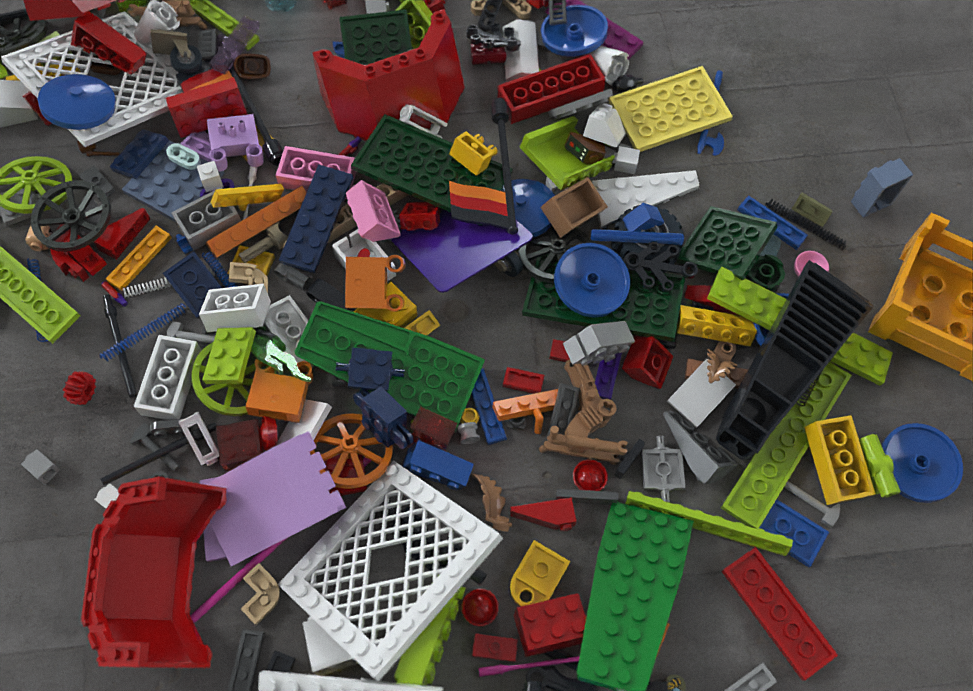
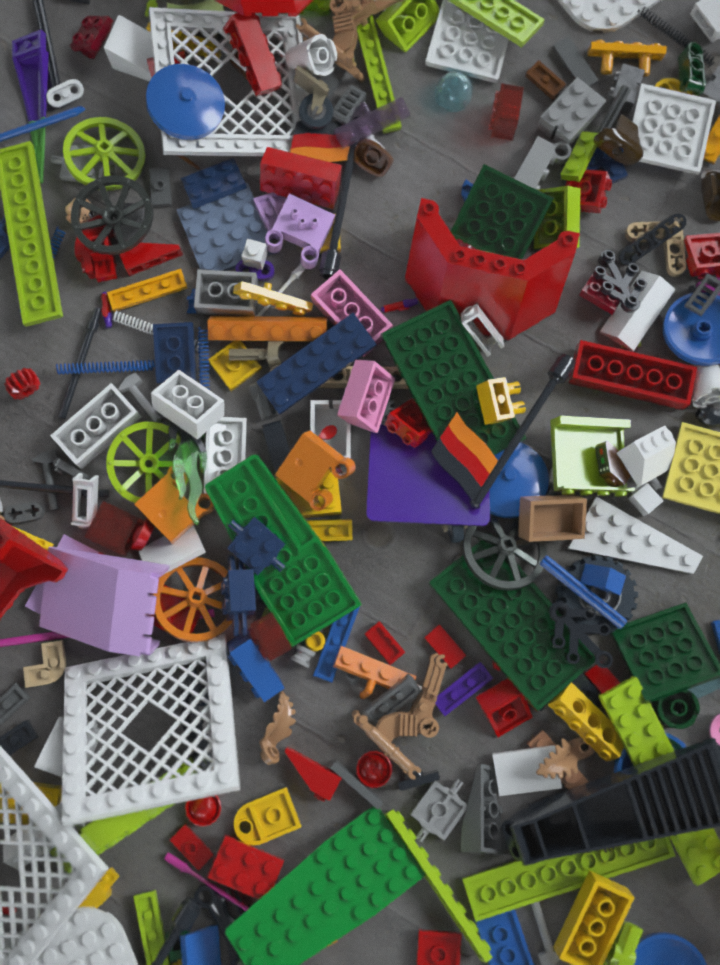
camera: 40 degrees right, 15 degrees up
(185, 156) = (248, 216): light aqua plate -> none
(229, 355) = (152, 447): lime plate -> none
(247, 274) = (226, 376): tan plate -> none
(580, 105) = (643, 414): light grey plate -> none
(592, 280) = (508, 603): blue dish -> none
(599, 343) = (464, 670): light grey piece -> none

